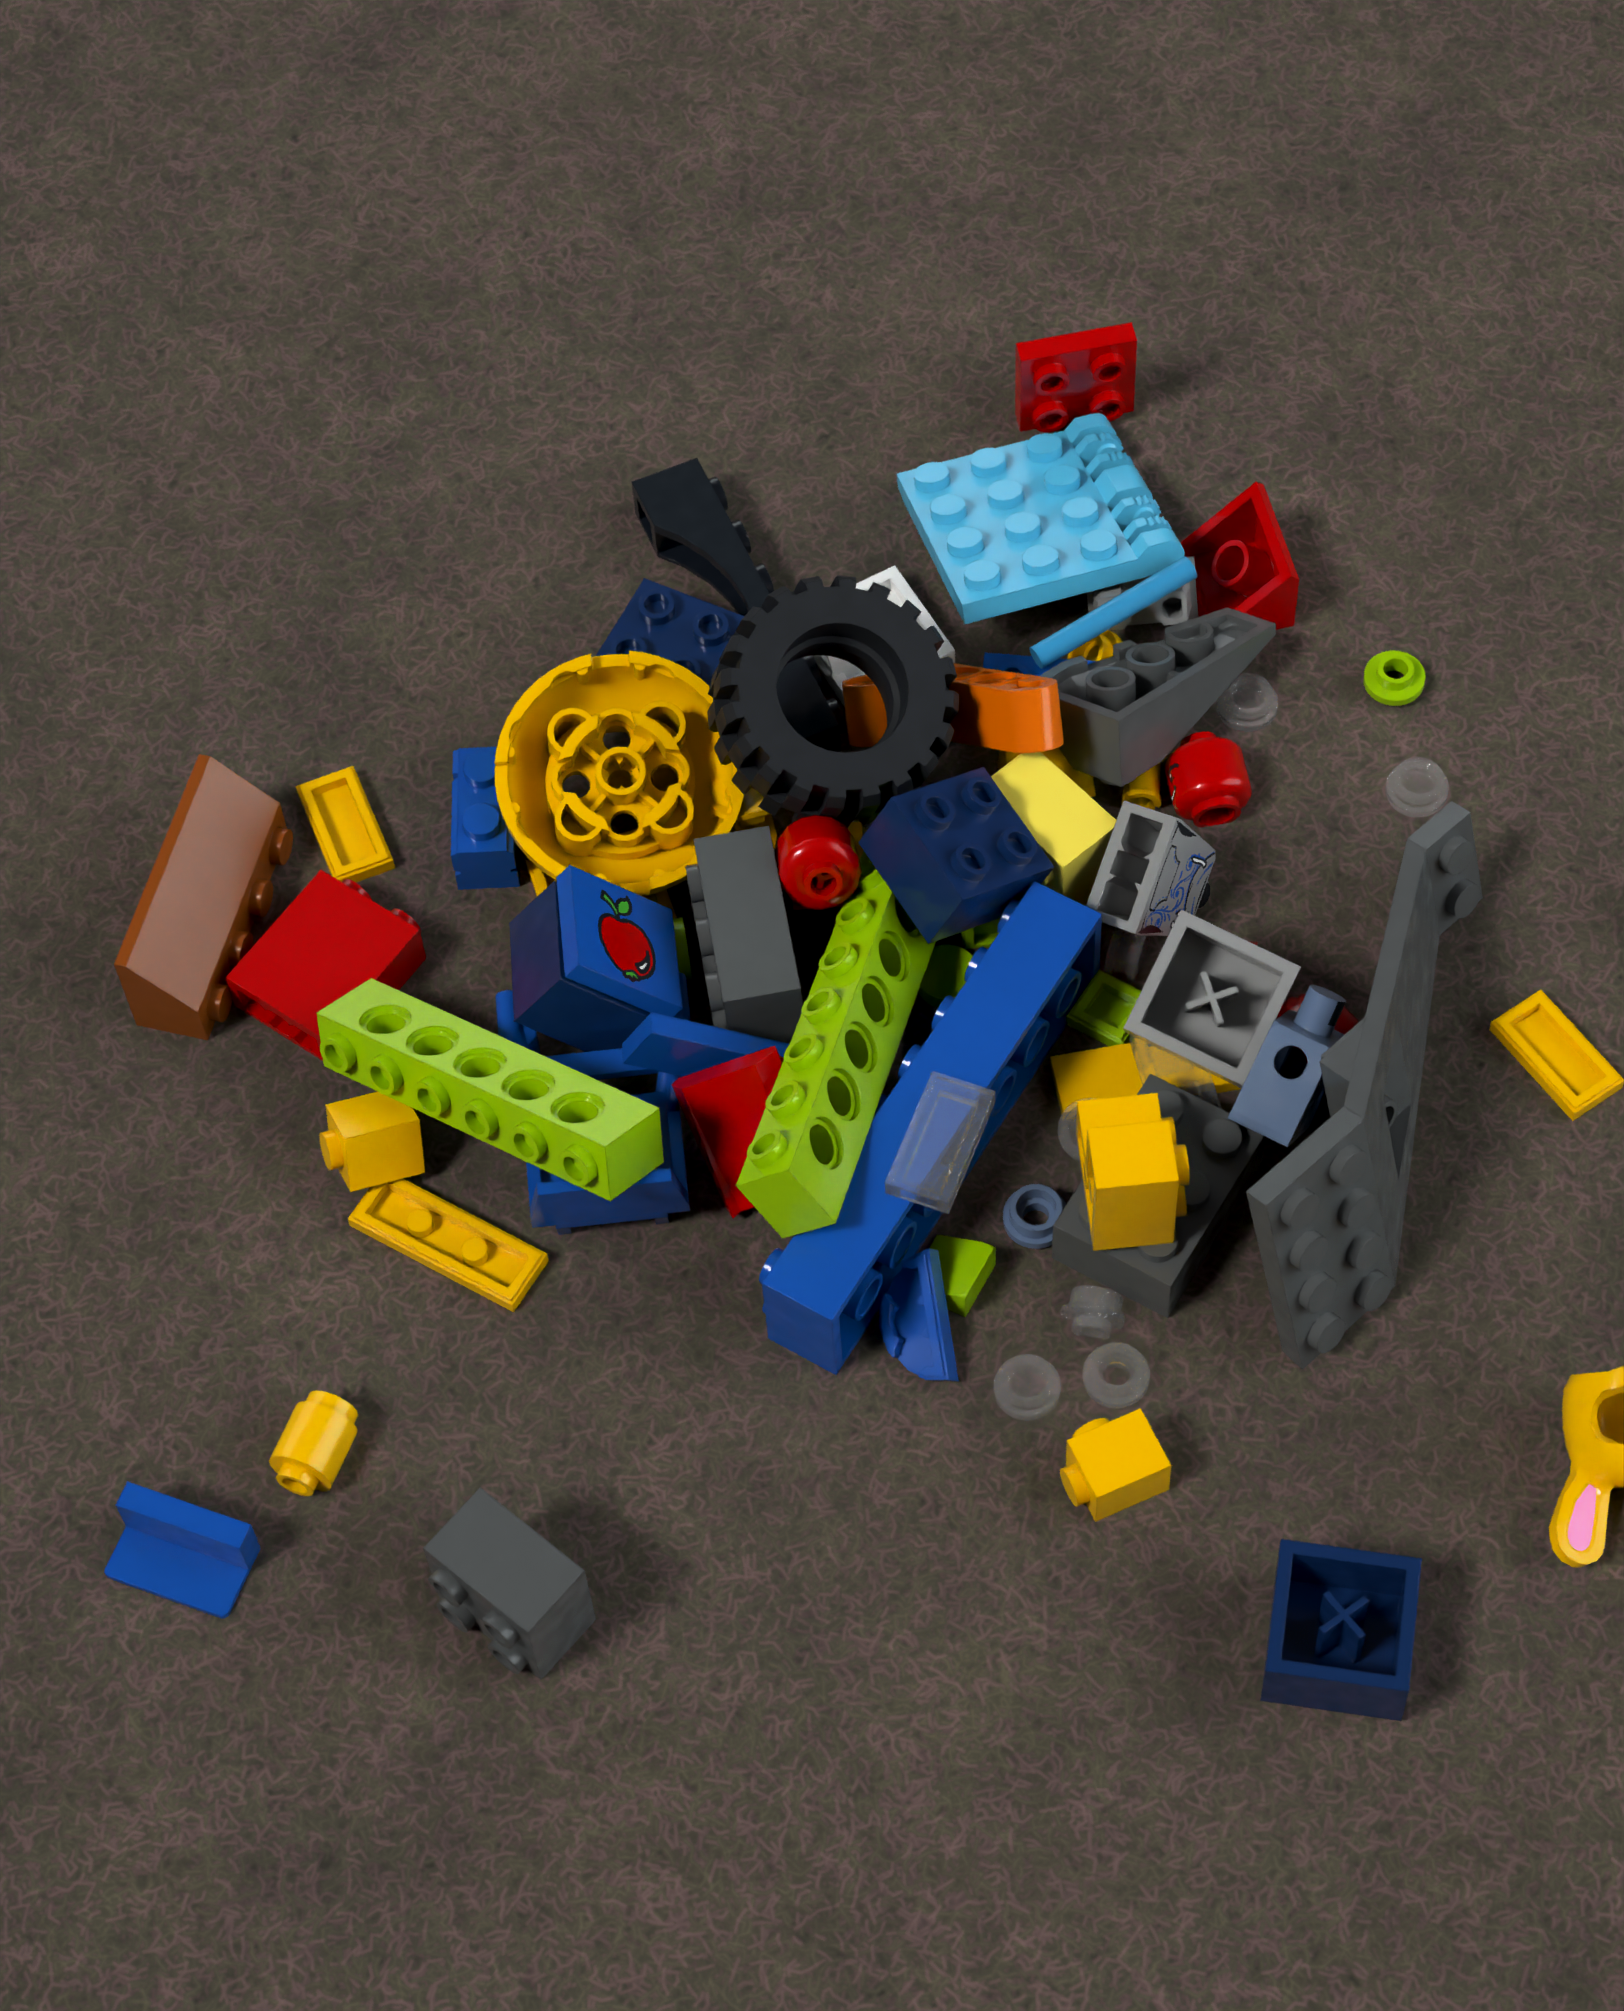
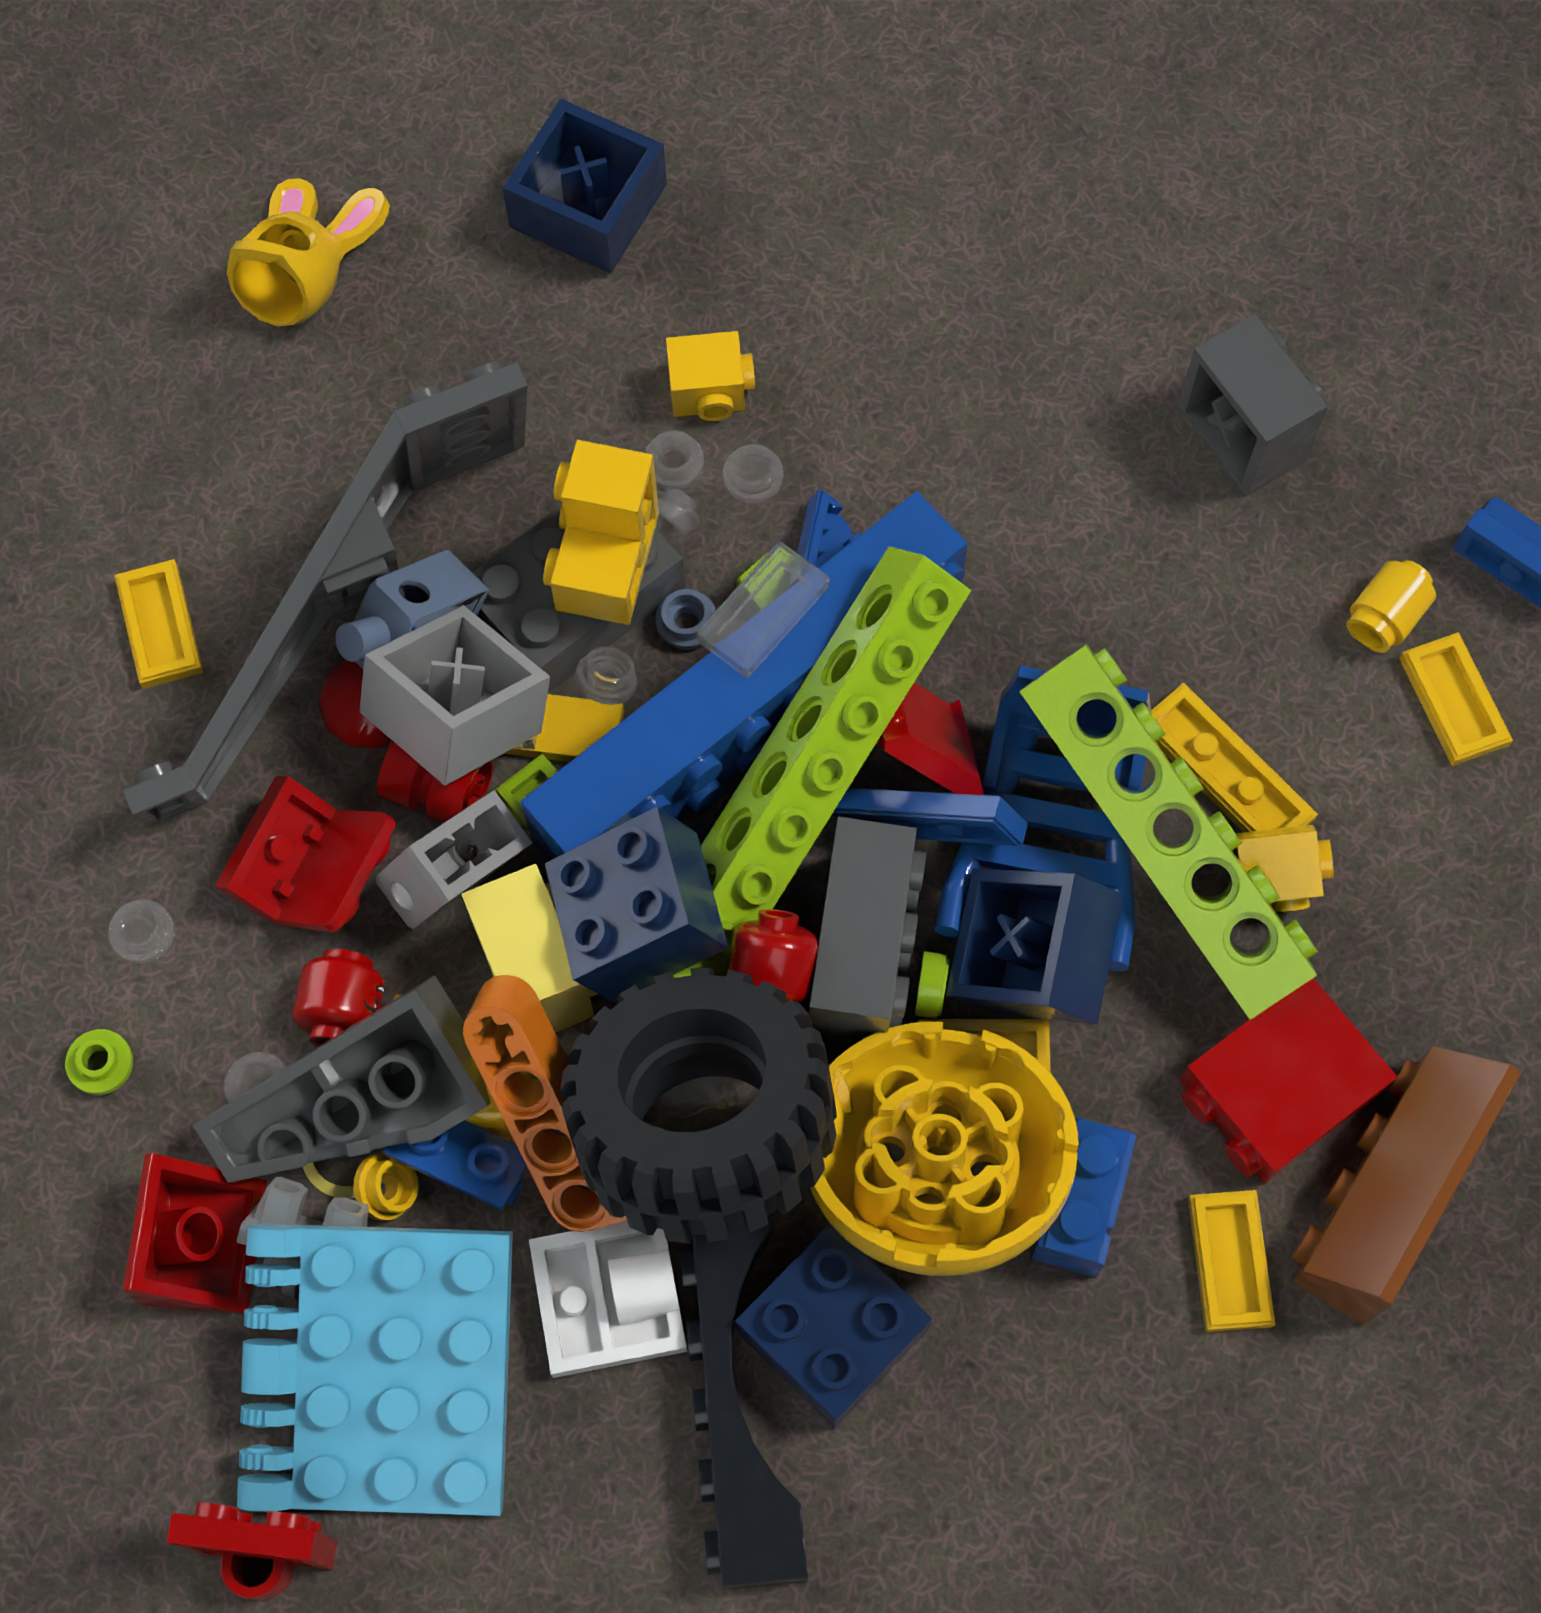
camera: 165 degrees left, 10 degrees up
(230, 1381) = (1455, 699): none -> yellow tile
(618, 942) = (999, 934): blue tile -> none
(1113, 612) = (352, 1182): dark azure bar -> none
(1287, 875) = (305, 858): none -> red bracket

